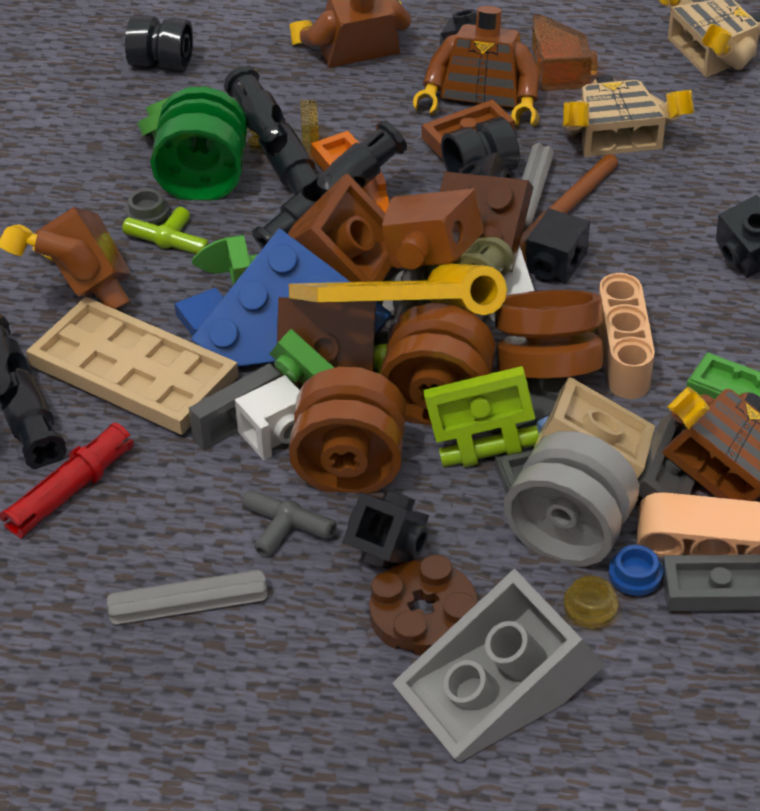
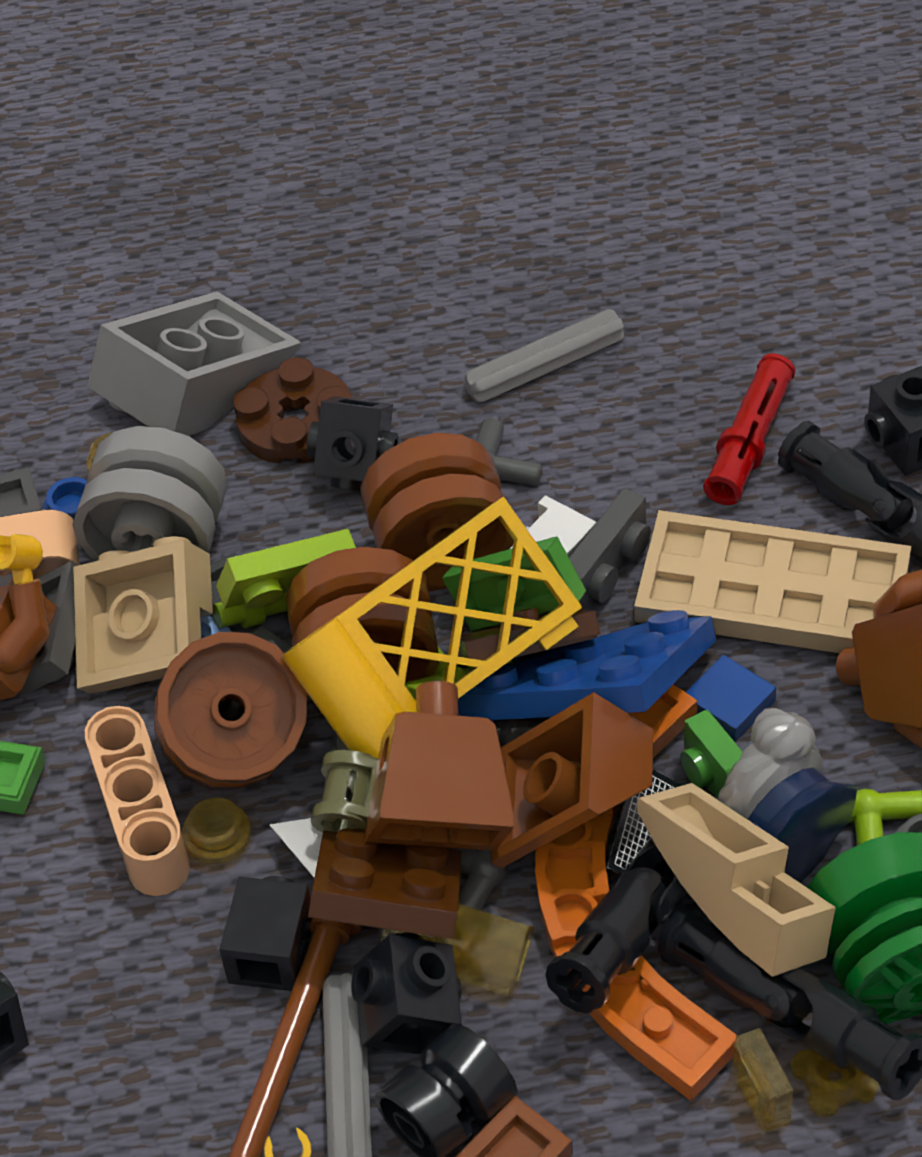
camera: 165 degrees right, 5 degrees up
(221, 203) = (785, 793): none -> piece
(274, 163) = (738, 878): none -> tan slope

